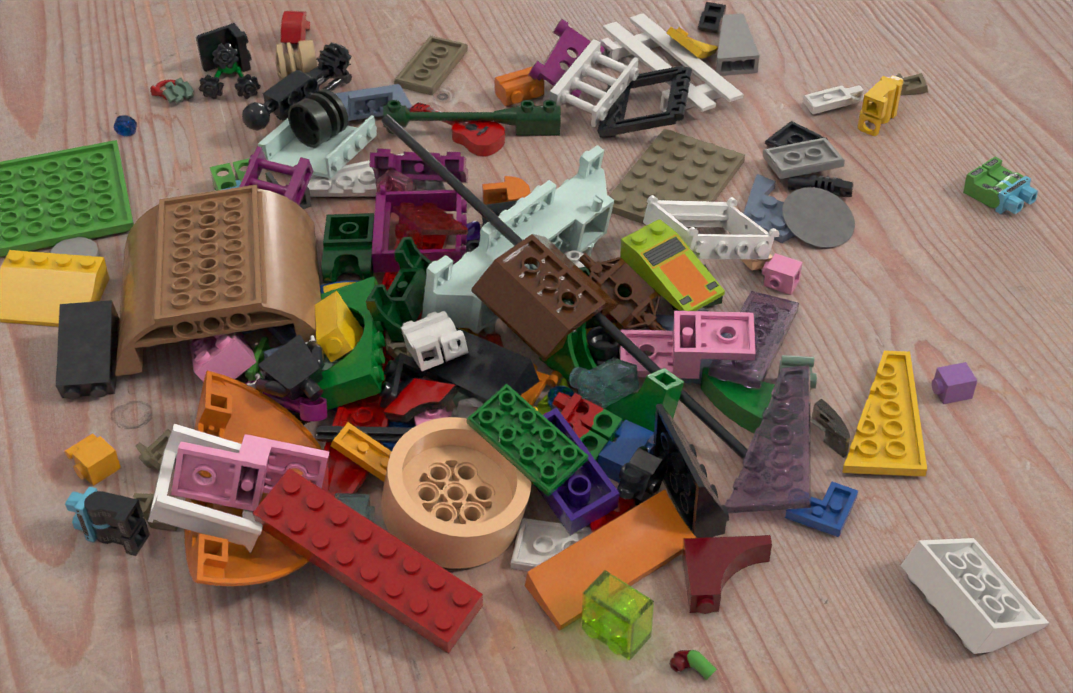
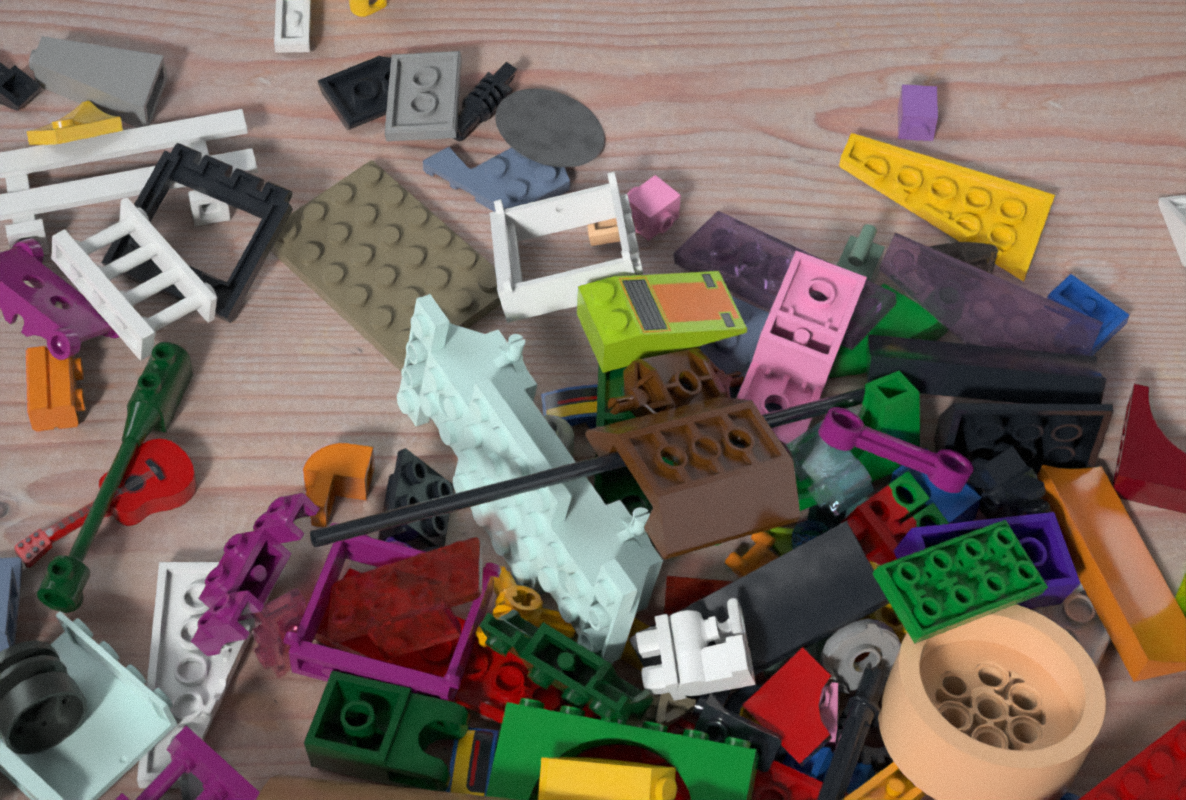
camera: 75 degrees left, 10 degrees up
(628, 402) = (846, 430): none -> magenta piece
(723, 441) = (987, 371): none -> black arch

